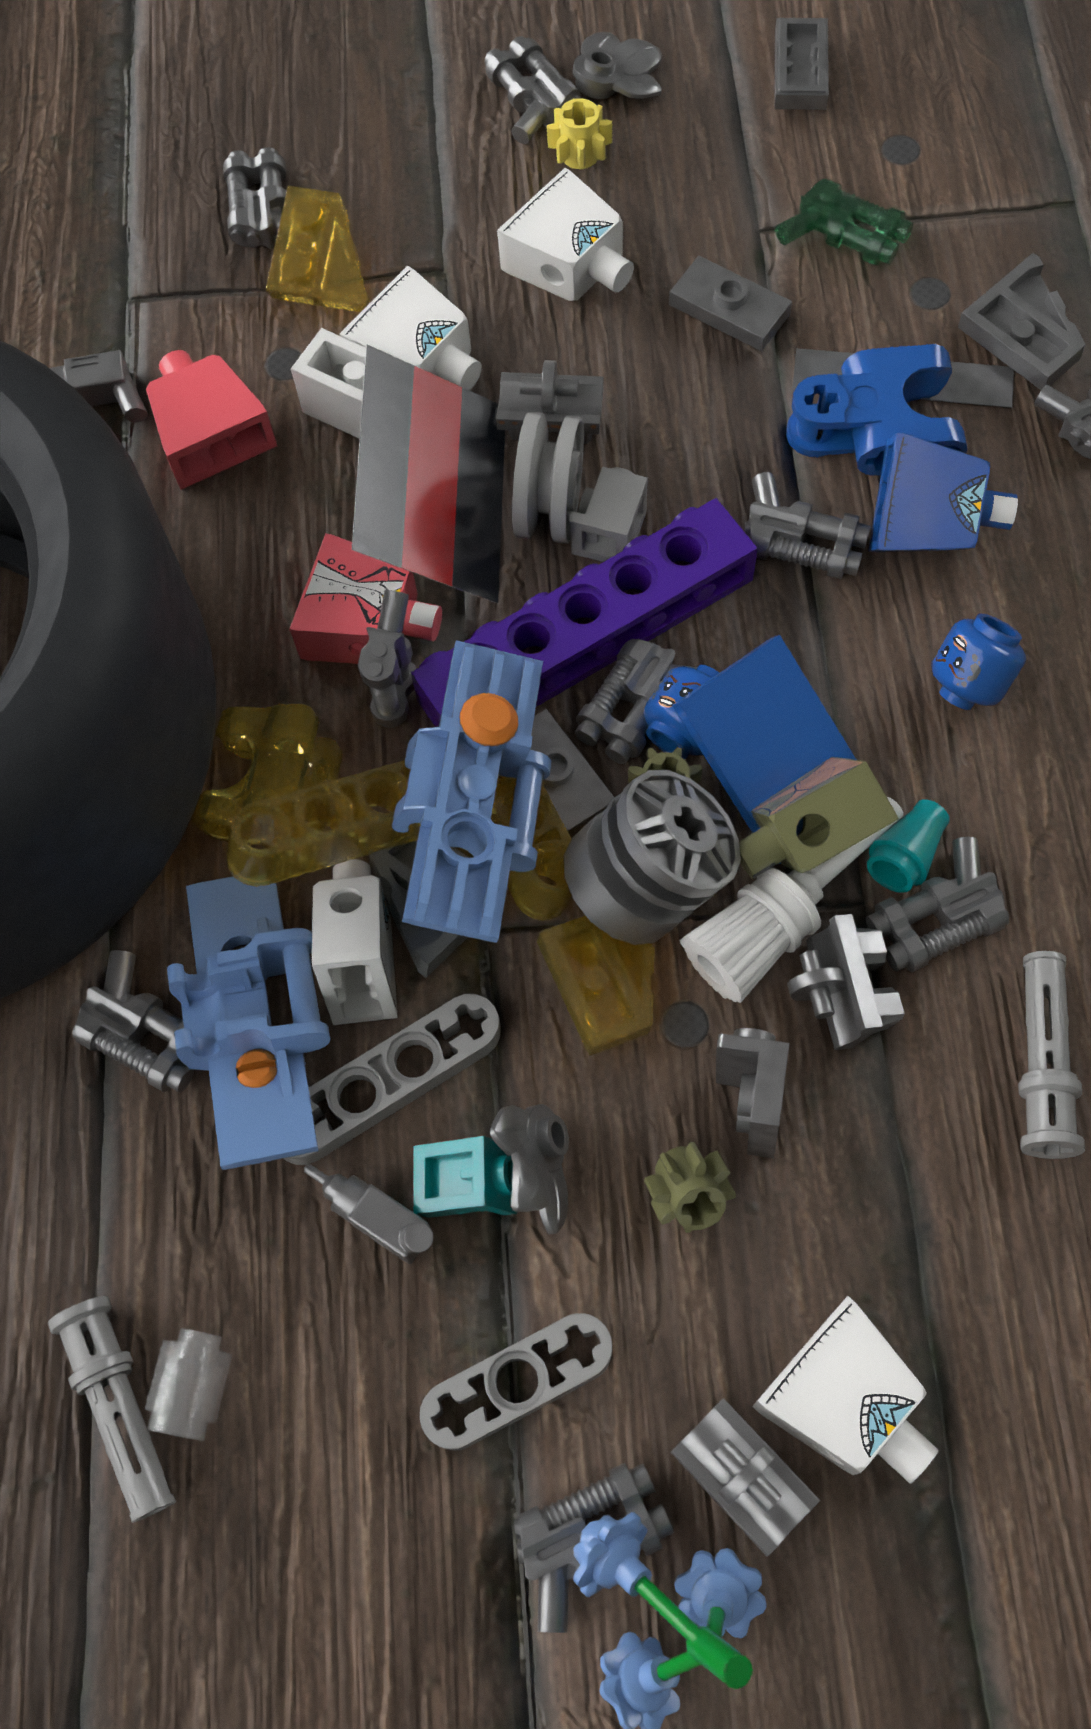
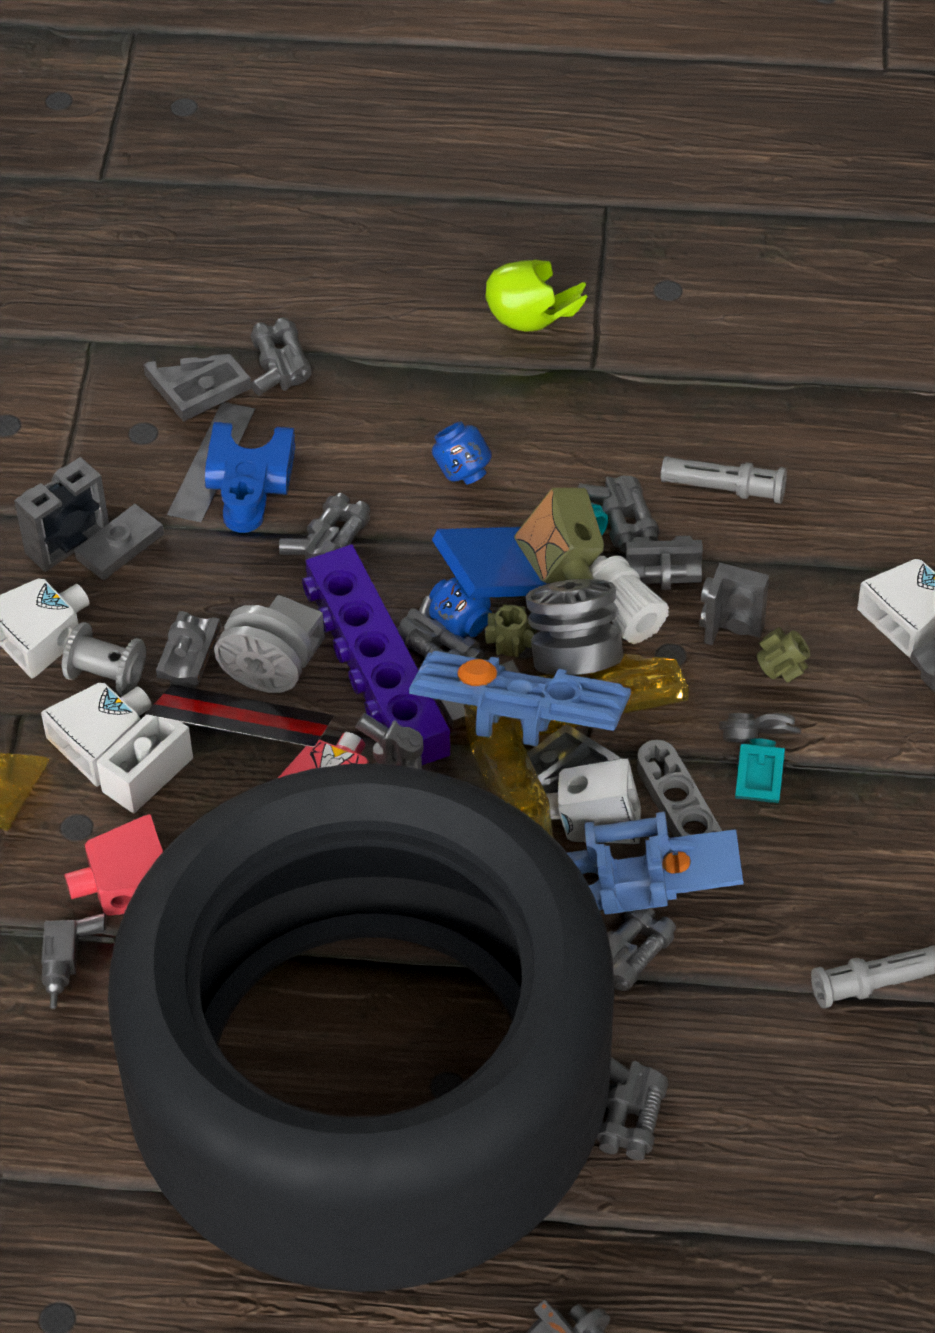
camera: 85 degrees left, 15 degrees down
(188, 1385) = (873, 927): clear brick -> none
(375, 1214) = (781, 815): flat silver piece -> none
(461, 1391) = (886, 781): light grey beam -> none
(522, 295) = (103, 658): none -> light grey hose
(730, 211) = (61, 513): none -> piece
(833, 213) = (81, 438): clear green piece -> none
(934, 499) = (337, 452): blue torso -> none

